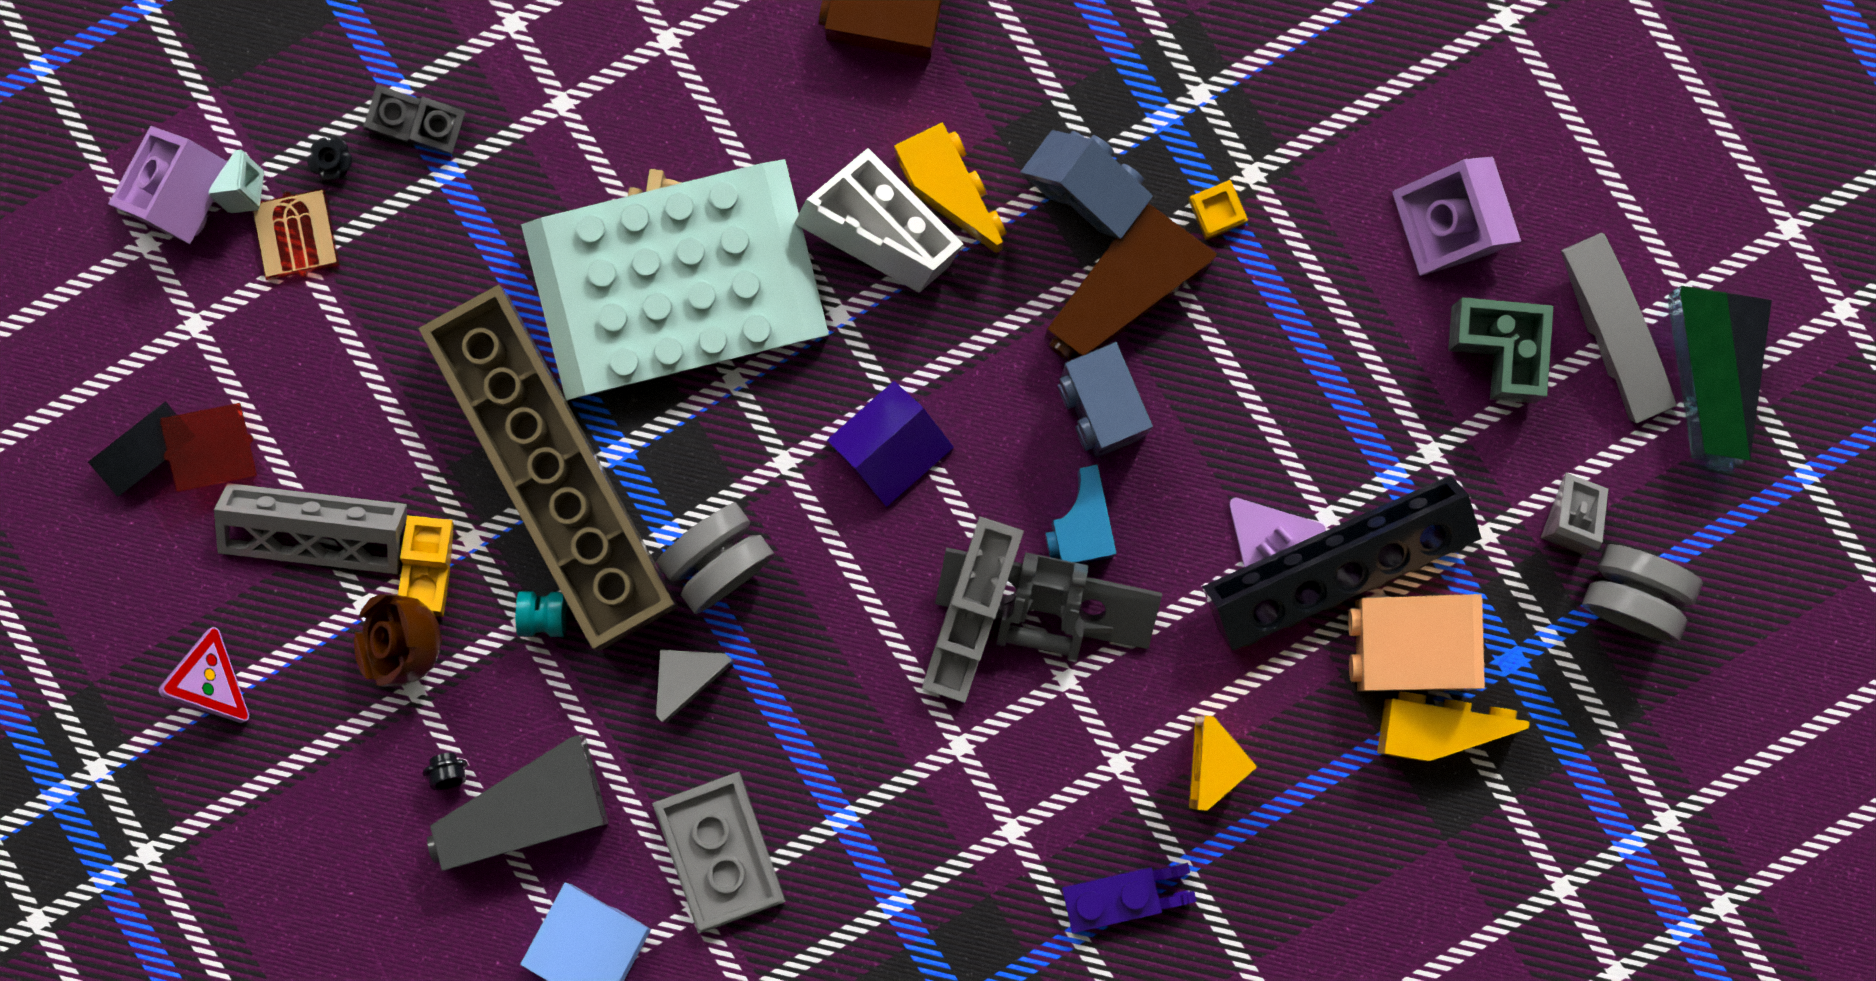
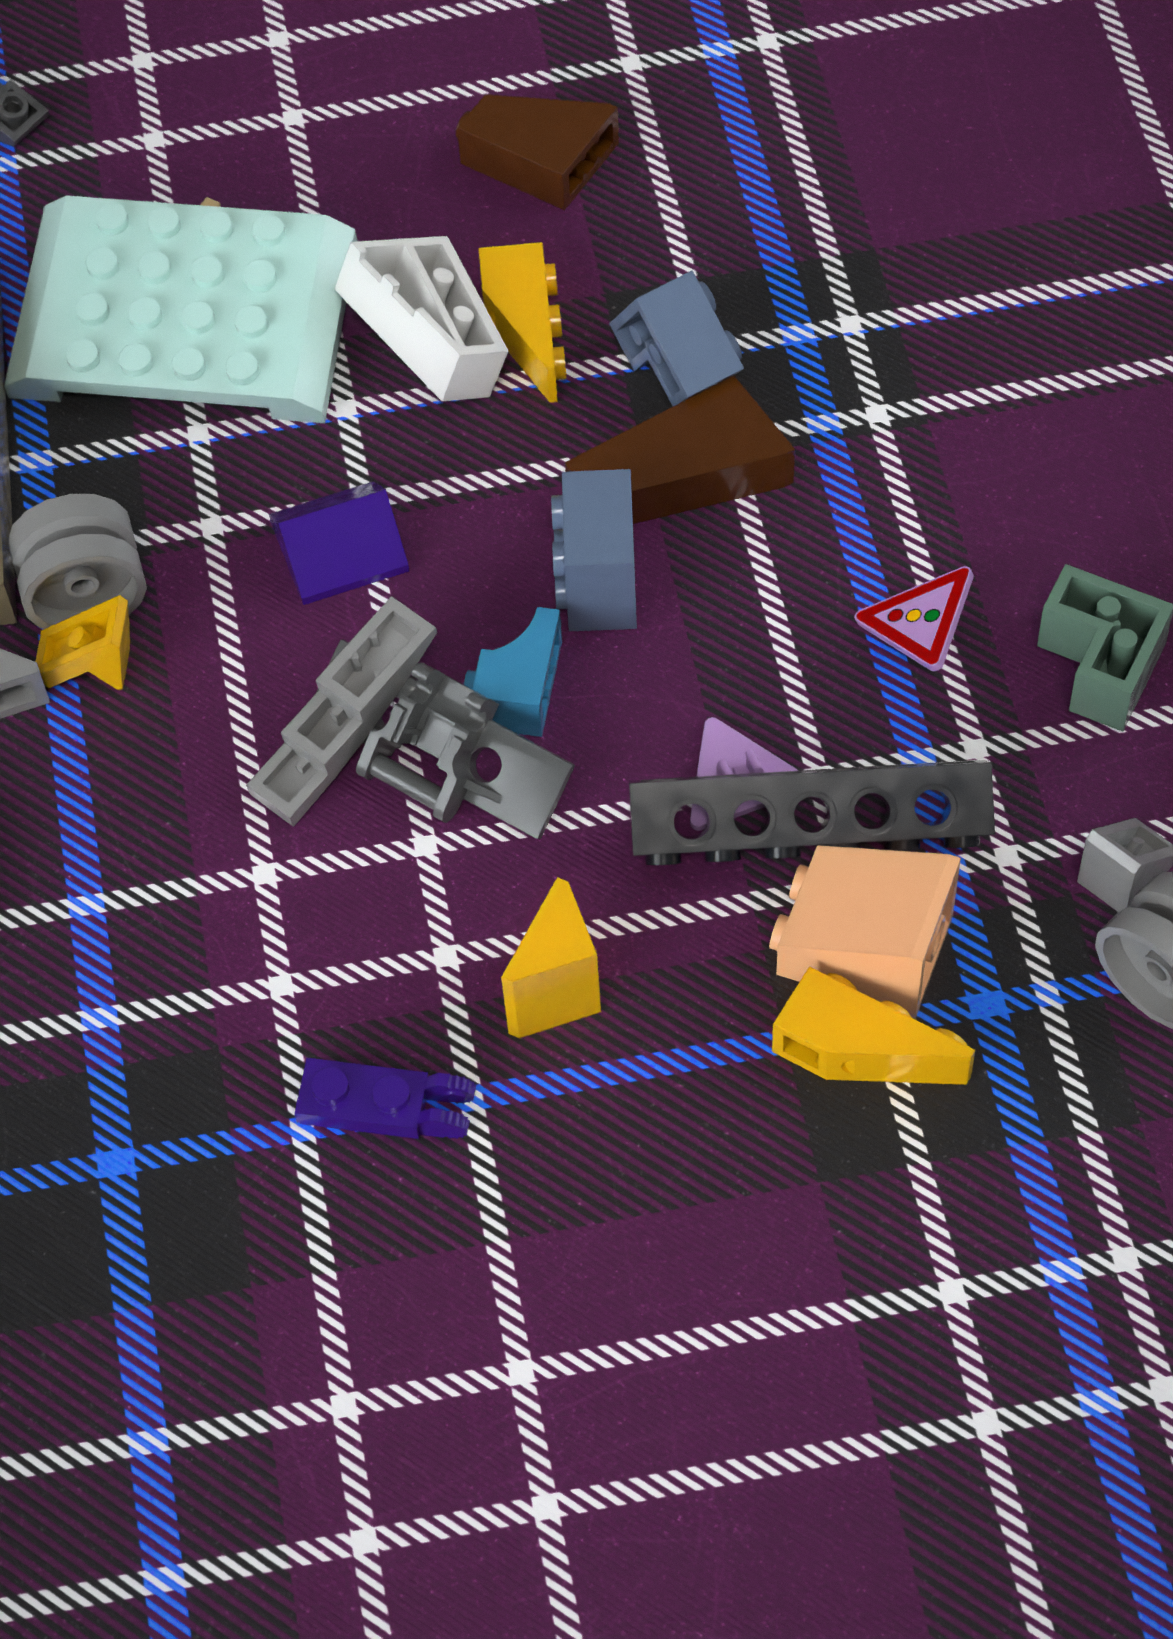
camera: 25 degrees right, 25 degrees down
(747, 619) = (87, 642): none -> yellow slope
(1218, 209) = (820, 430): yellow tile -> none
(1360, 364) = (921, 618): none -> piece
(1456, 215) = (1100, 506): lavender slope -> none

